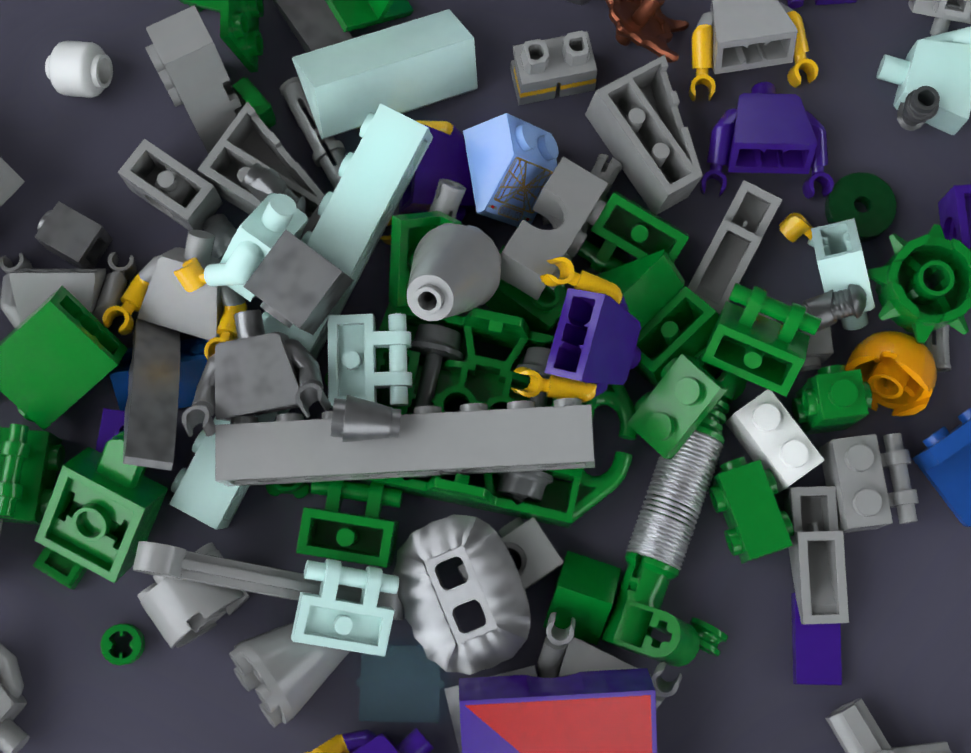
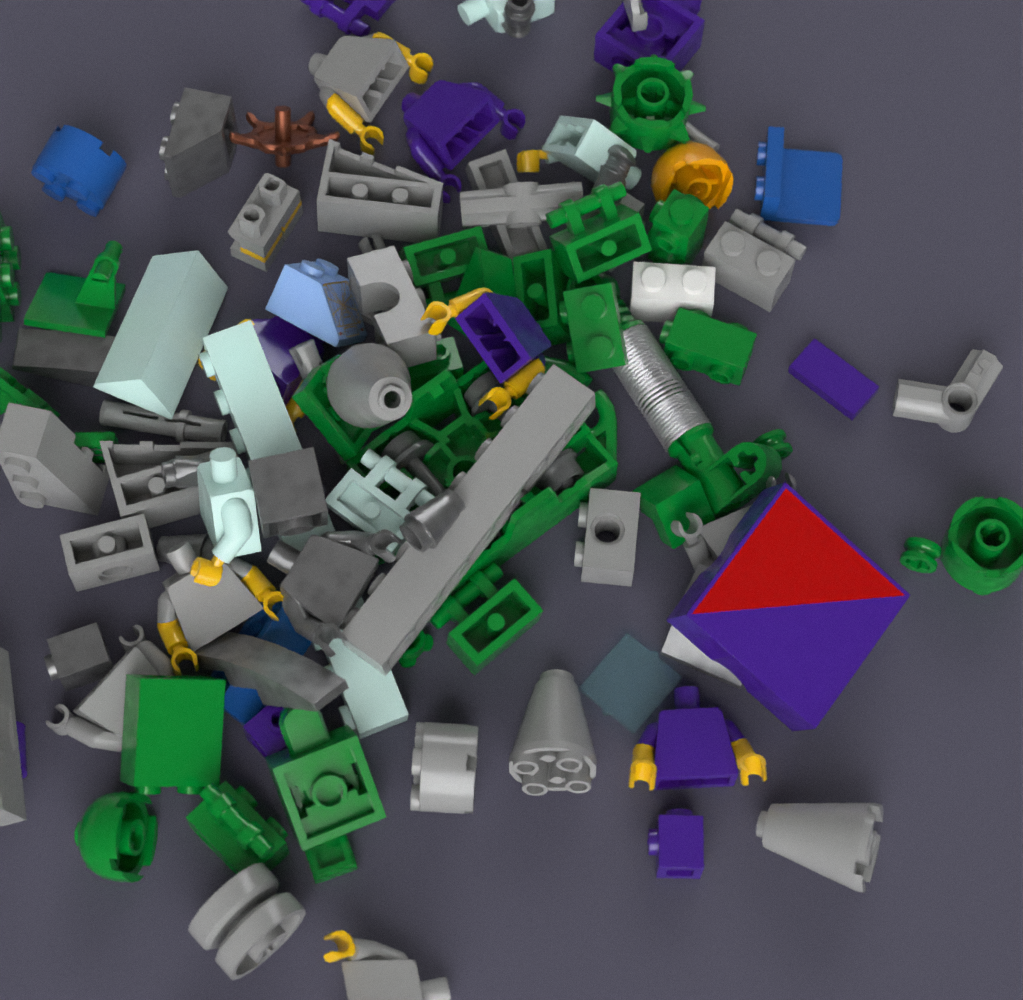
camera: 50 degrees left, 10 degrees down
(108, 644) = (442, 850): green bush -> none
(179, 563) = (416, 739): light grey piece -> none
(342, 622) = (559, 667): light aqua plate -> none
(491, 582) = (615, 545): flat silver piece -> none
(736, 251) = (515, 204): none -> light grey piece
(817, 555) = (779, 328): light grey slope -> none
(870, 191) = (547, 95): dark green piece -> none

